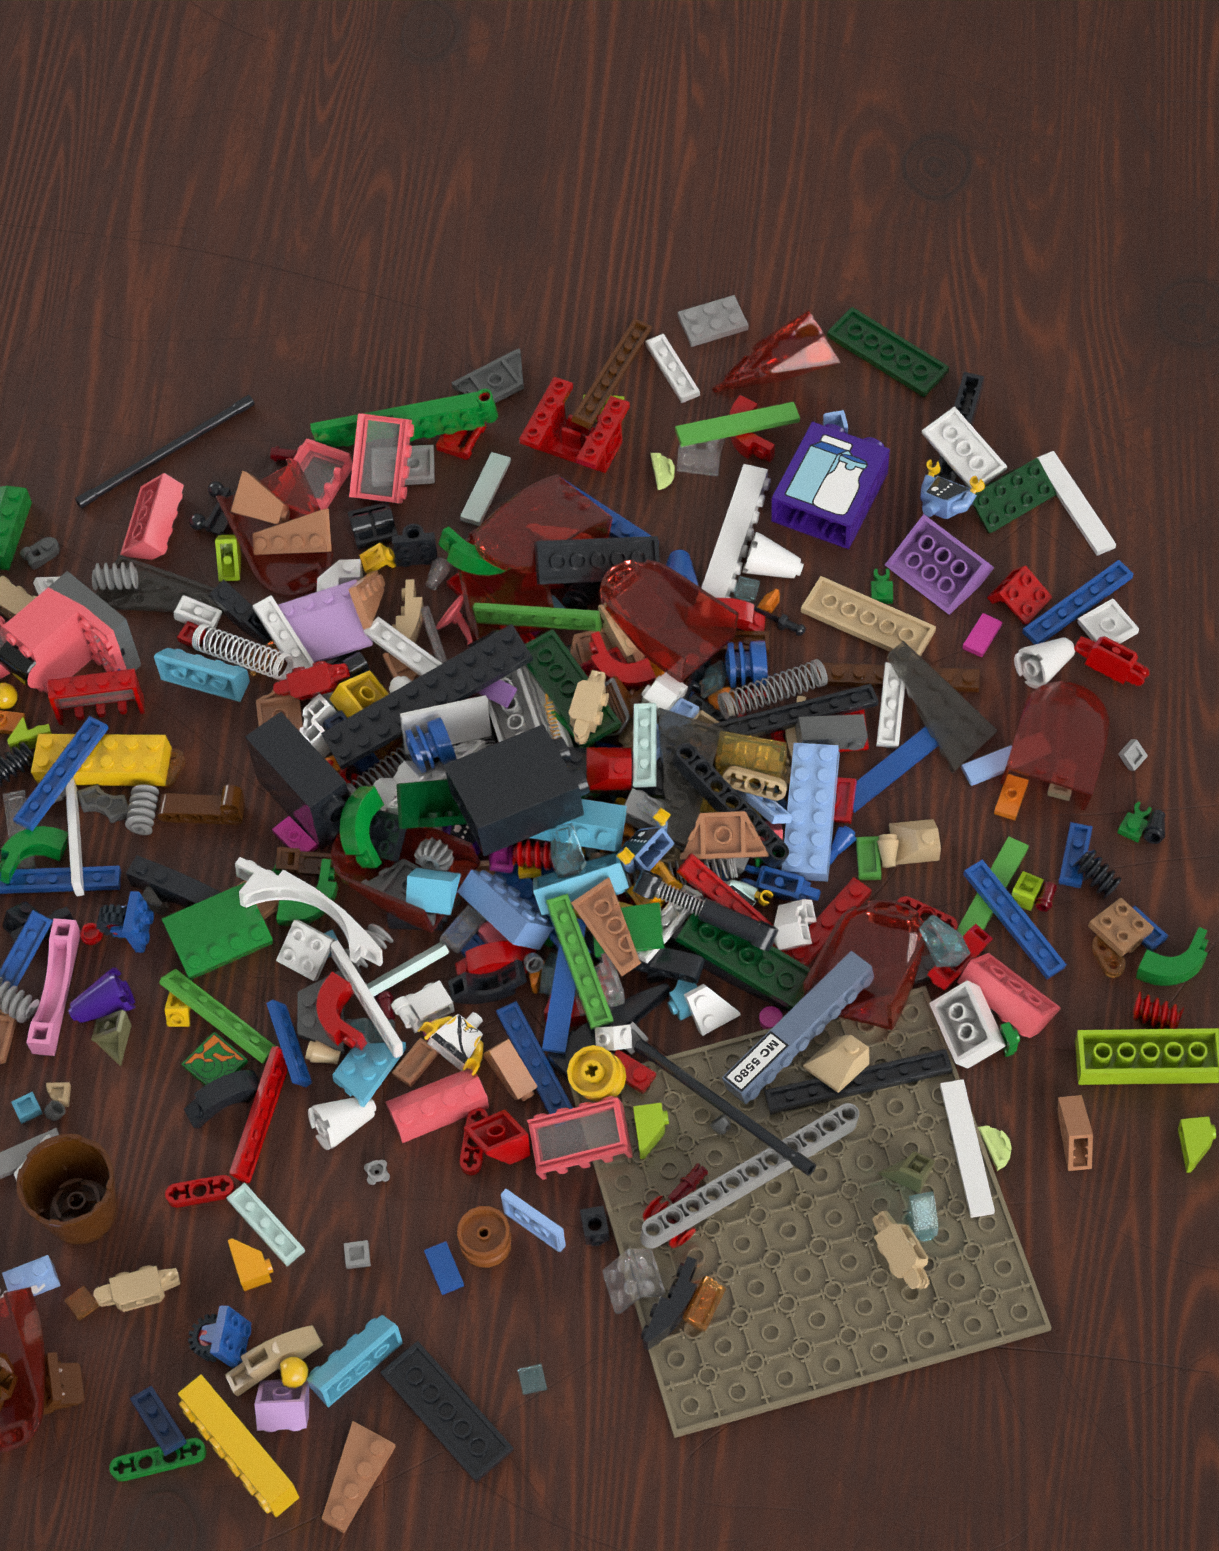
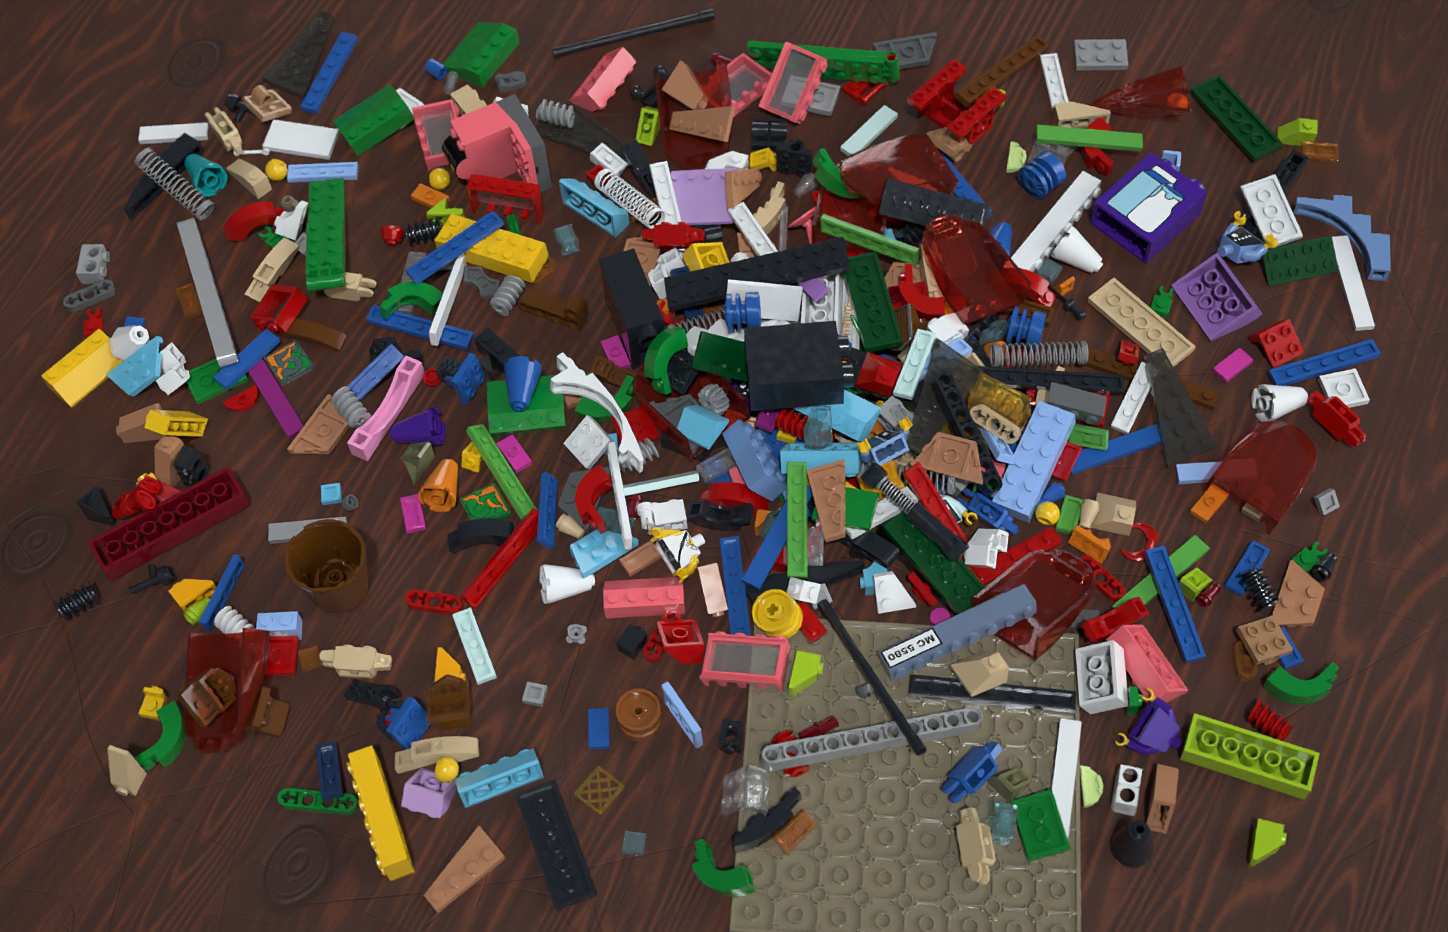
camera: 20 degrees right, 0 degrees up
(51, 1311) = (282, 656): none -> red plate
(59, 1092) = (360, 490): tan tile -> none
(114, 724) = (512, 223): none -> green axle
(134, 1098) = (413, 514): none -> dark pink plate
(155, 1057) = (440, 487): none -> orange cone
(170, 1319) = (370, 694): none -> black plate
(185, 723) = (566, 240): none -> clear light blue brick
(205, 905) = (521, 381): none -> blue cone
(224, 991) = (514, 453): none -> dark pink plate
(266, 1297) = (449, 703): none -> reddish brown piece
(358, 908) = (640, 423): none -> red plate
(443, 1158) = (632, 641): none -> black brick
(464, 1353) = (587, 782): none -> clear yellow window
(533, 962) = (763, 511): dark grey hinge -> none
(583, 477) = (949, 144): none -> medium nougat plate
(587, 706) = (879, 319): tan hinge -> none
(649, 1386) = (728, 883): none -> green arch
(700, 482) = (1041, 175): none -> blue wheel
(713, 400) = (1077, 115): none -> tan slope
(741, 994) = (921, 590): none -> red plate
(844, 864) = (1047, 513): none -> yellow piece
(859, 765) = (1089, 437): none -> bright green tile
(867, 656) = (1128, 352): none -> red plate
(870, 1173) = (972, 771): none -> blue hinge
(902, 883) = (1090, 544): none -> orange tile
(943, 942) = (1105, 603): clear light blue slope -> none
(961, 349) = (1298, 131): none -> lime slope
(962, 1205) = (1041, 825): none -> green tile
(965, 854) = (1151, 536): none -> red piece
(991, 363) = (1320, 151): none -> clear orange plate
(1031, 1154) = (1117, 803): none -> white piece
(1035, 429) = (1338, 214): none -> medium blue arch
(1041, 1061) = (1154, 728): none -> dark purple torso
(1062, 1191) = (1132, 844): none -> black cone
(1140, 869) = (1298, 597): none -> nougat wing

